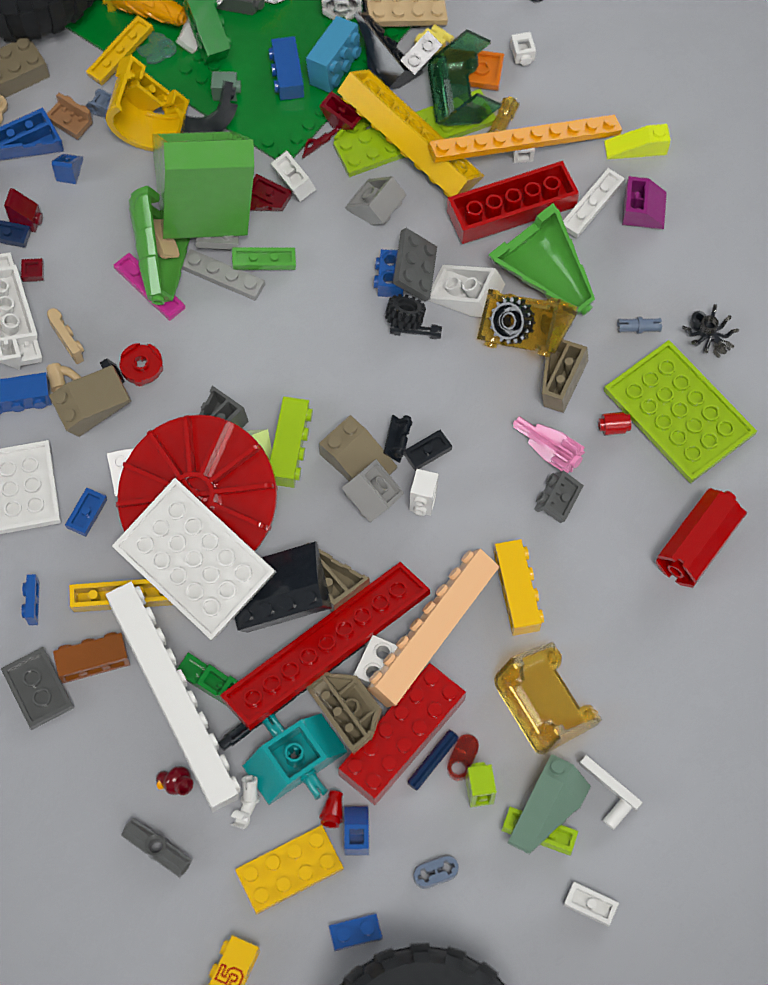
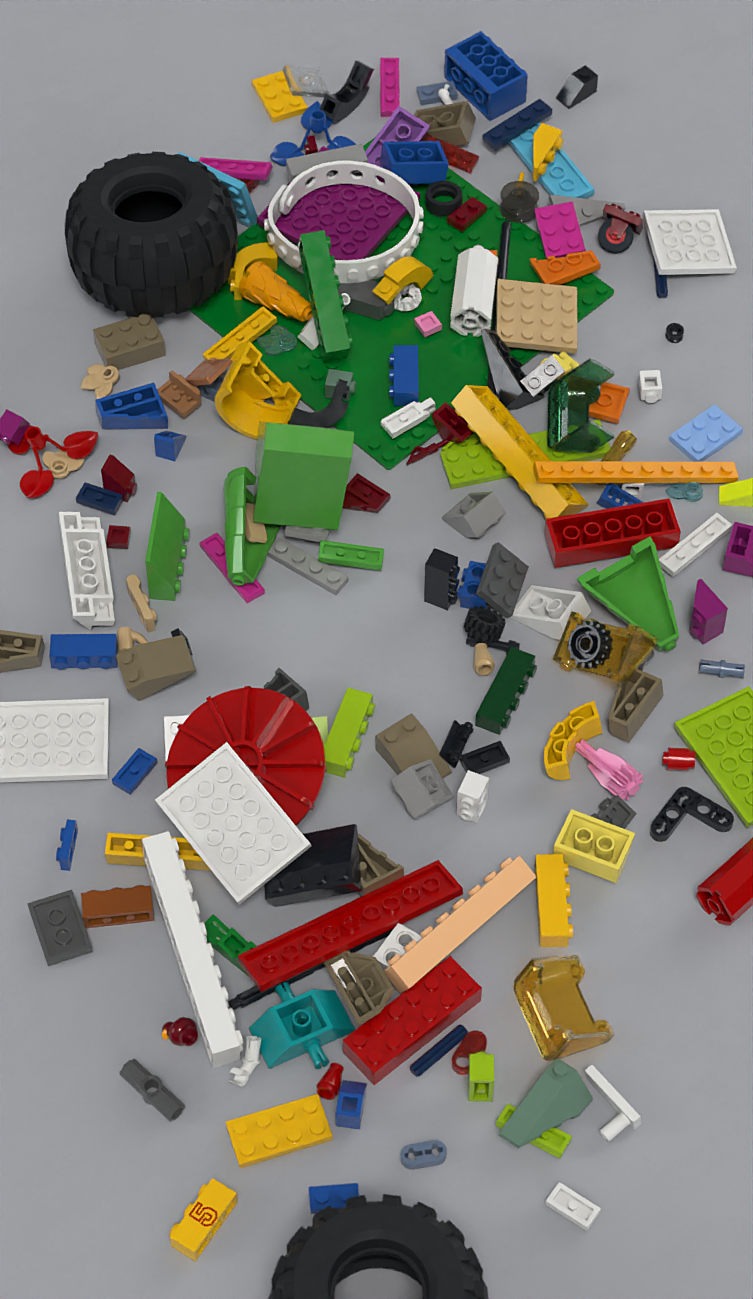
camera: 10 degrees right, 10 degrees down
(81, 279) = (166, 550): none -> bright green slope
(94, 89) = (208, 371): none -> nougat door
(145, 374) = (211, 650): red plate -> none
(293, 176) = (394, 480): white brick -> none
(296, 110) = (407, 417): none -> white hinge
(300, 13) = (428, 324): none -> bright pink plate
(333, 54) = (454, 367): dark azure brick -> none
(357, 273) = (441, 579): none -> black brick
(409, 348) = (483, 660): none -> tan cone
(436, 377) = (505, 691): none -> dark green brick
(510, 160) = (616, 492): none -> blue slope
(513, 403) = (580, 724): none -> yellow brick
(549, 525) = (594, 845): none -> light yellow slope
(571, 150) = (690, 491): none -> clear light blue plate
(583, 90) = (706, 434): none -> light blue plate
(617, 272) = (707, 615): none -> magenta slope
(633, 470) = (689, 806): none -> black beam

